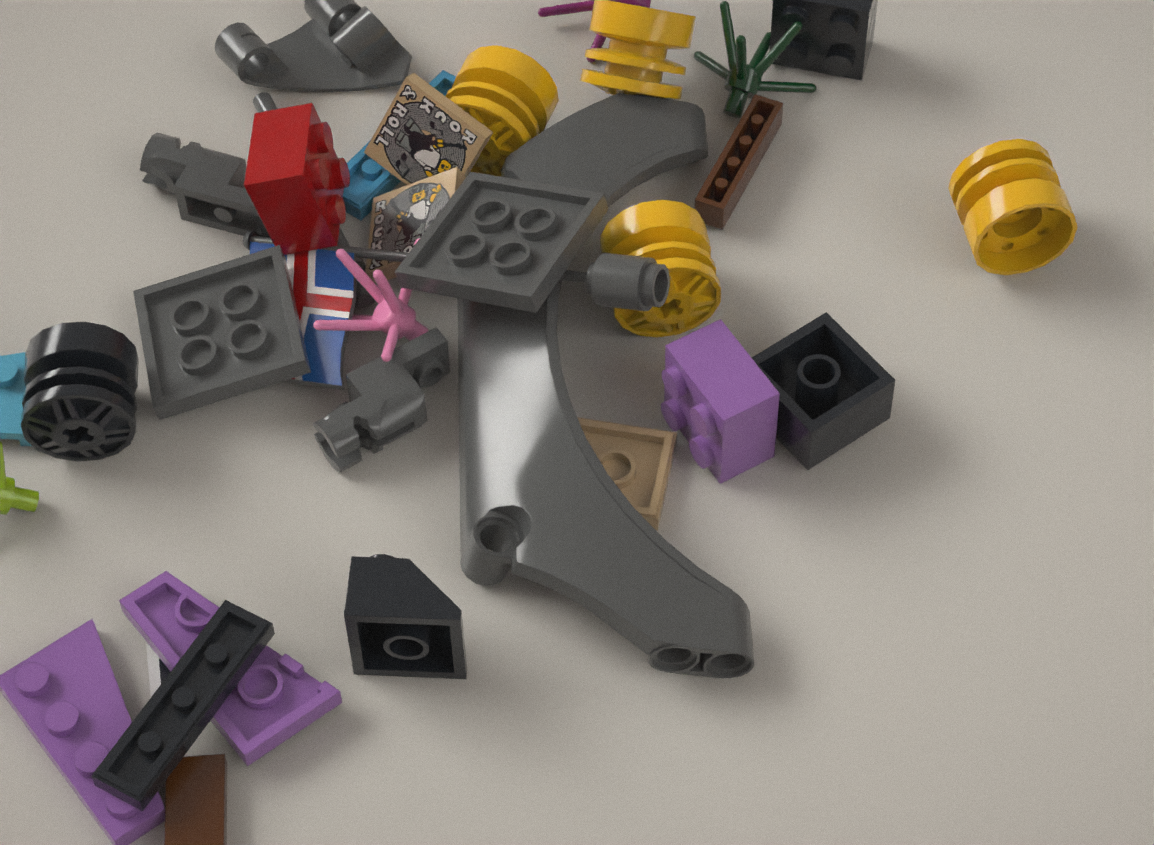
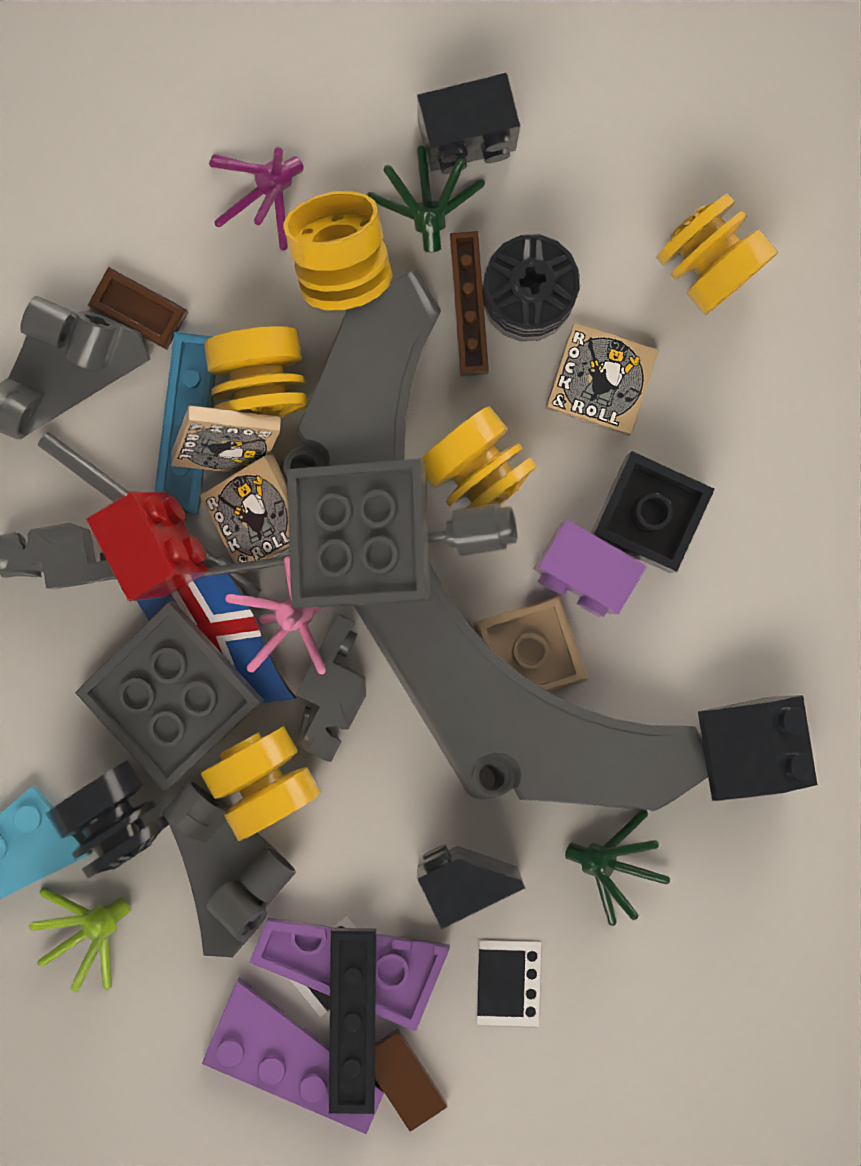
camera: 30 degrees left, 35 degrees up
(163, 508) = (227, 876): none -> dark grey panel
(254, 431) = (255, 773): none -> yellow wheel
(380, 781) = (509, 983): none -> black sticker
(425, 42) = (137, 308): none -> reddish brown tile
(565, 690) = (602, 861): none -> dark green plant
(806, 161) = (514, 308): none -> black wheel
(806, 650) = (757, 748): none -> black slope
(836, 275) = (602, 379): none -> tile

